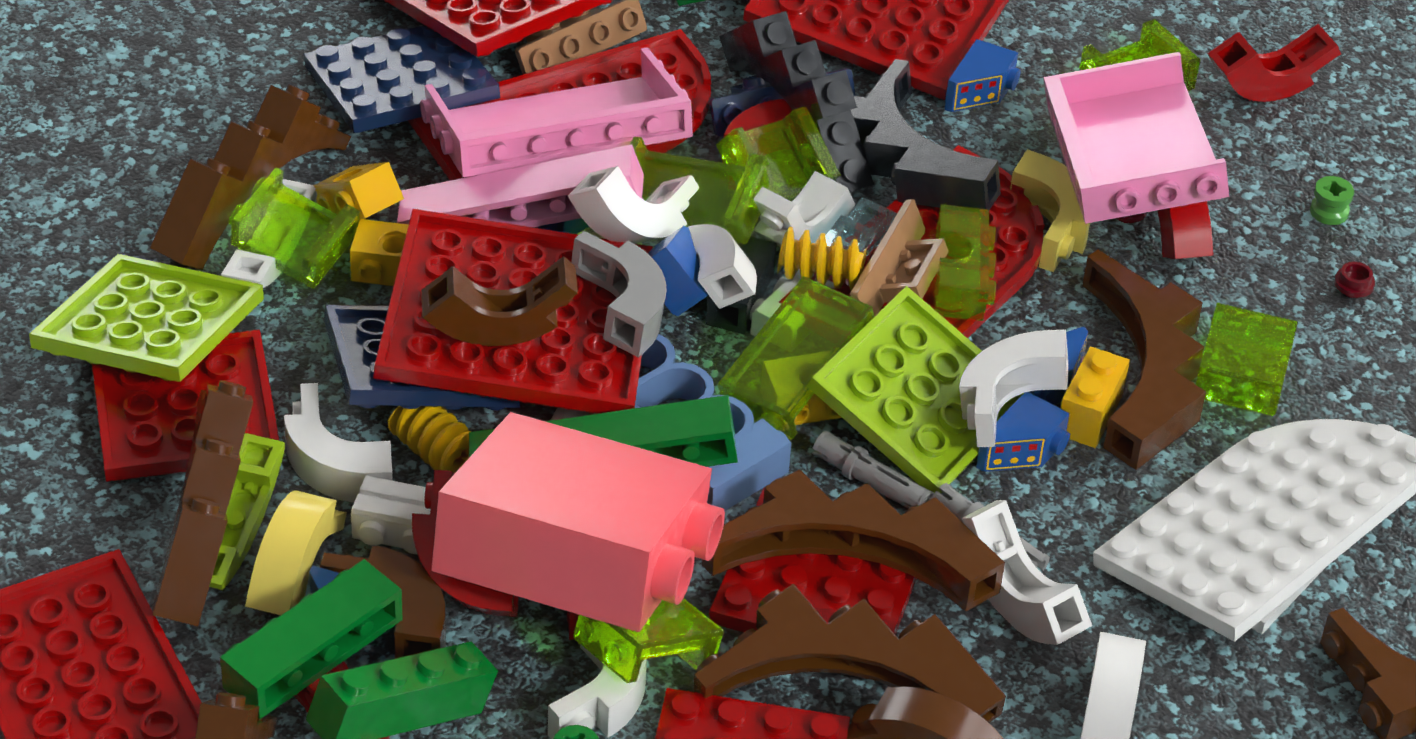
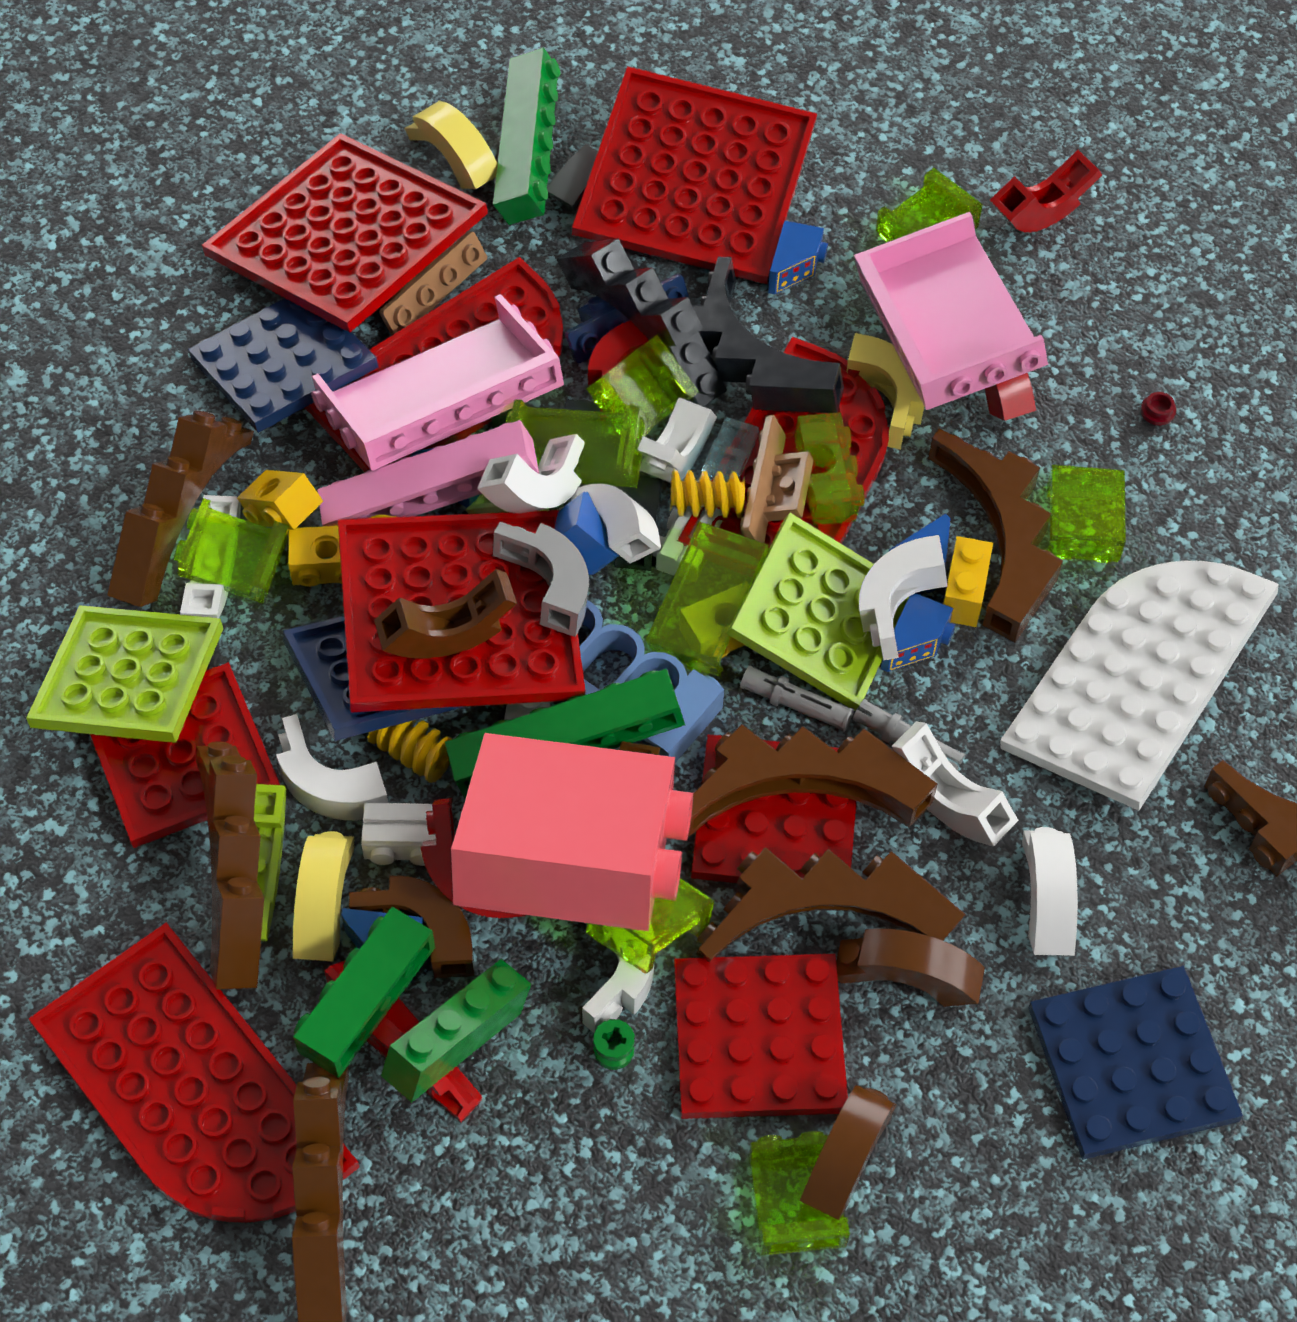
camera: 10 degrees left, 15 degrees up
(1332, 200) = (1115, 332): bright green wheel -> none

